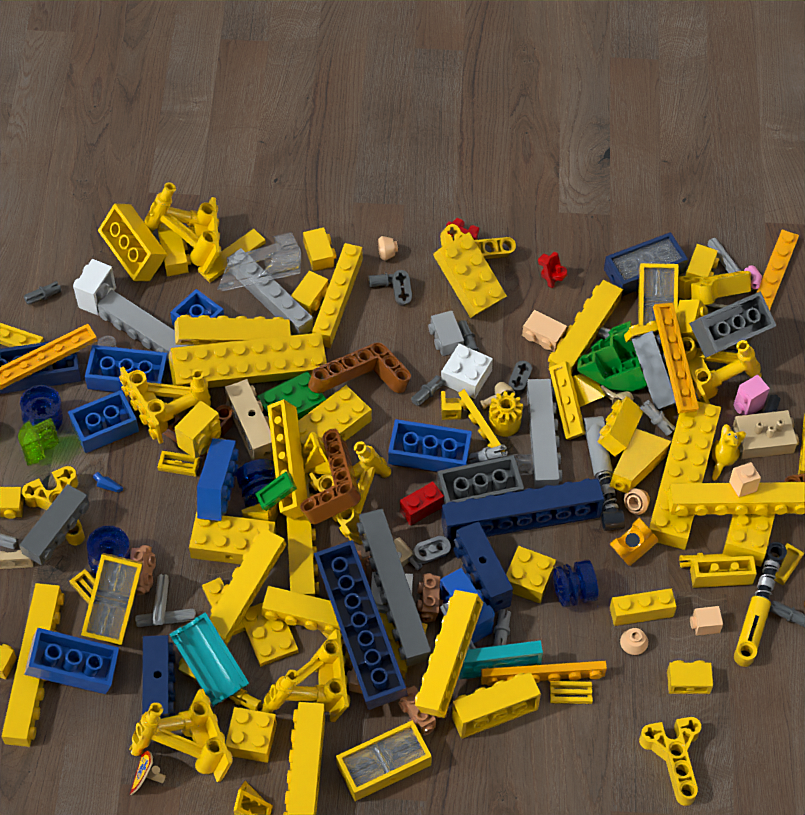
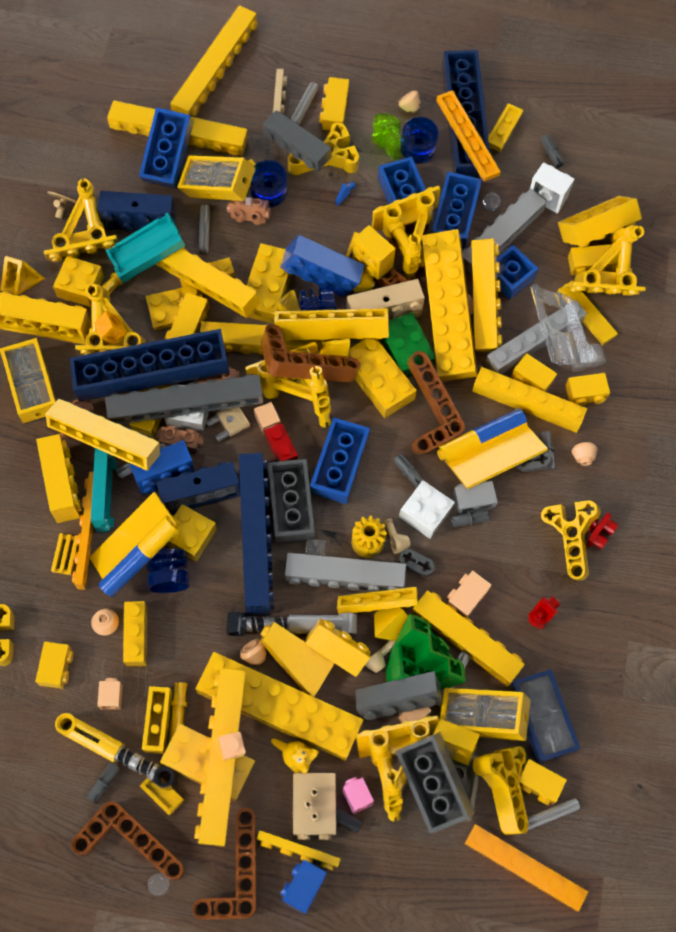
camera: 95 degrees right, 10 degrees up
(160, 599) = (218, 223): light grey axle -> none
(276, 491) = (295, 308): green tile -> none
(320, 671) = (110, 327): none -> light orange brick
(396, 319) = (491, 448): none -> yellow door
(396, 519) = (266, 416): none -> light nougat brick
(430, 551) = (231, 449): light grey plate -> none
(450, 408) = (389, 489): yellow panel -> none
(469, 275) = (536, 522): yellow brick -> none
(476, 417) = (380, 509): yellow plate -> none
(488, 454) = (323, 513): light grey pin -> none
(502, 628) = (132, 499): light grey pin -> none
(558, 611) = (134, 544): none -> yellow door
(634, 542) = (203, 632): light orange piece -> none
(637, 330) = (442, 679): yellow plate -> none
(657, 417) = (346, 690): light grey pin -> none
(675, 358) = (402, 711): light orange plate -> none
(756, 276) = (523, 844): bright pink arm -> none

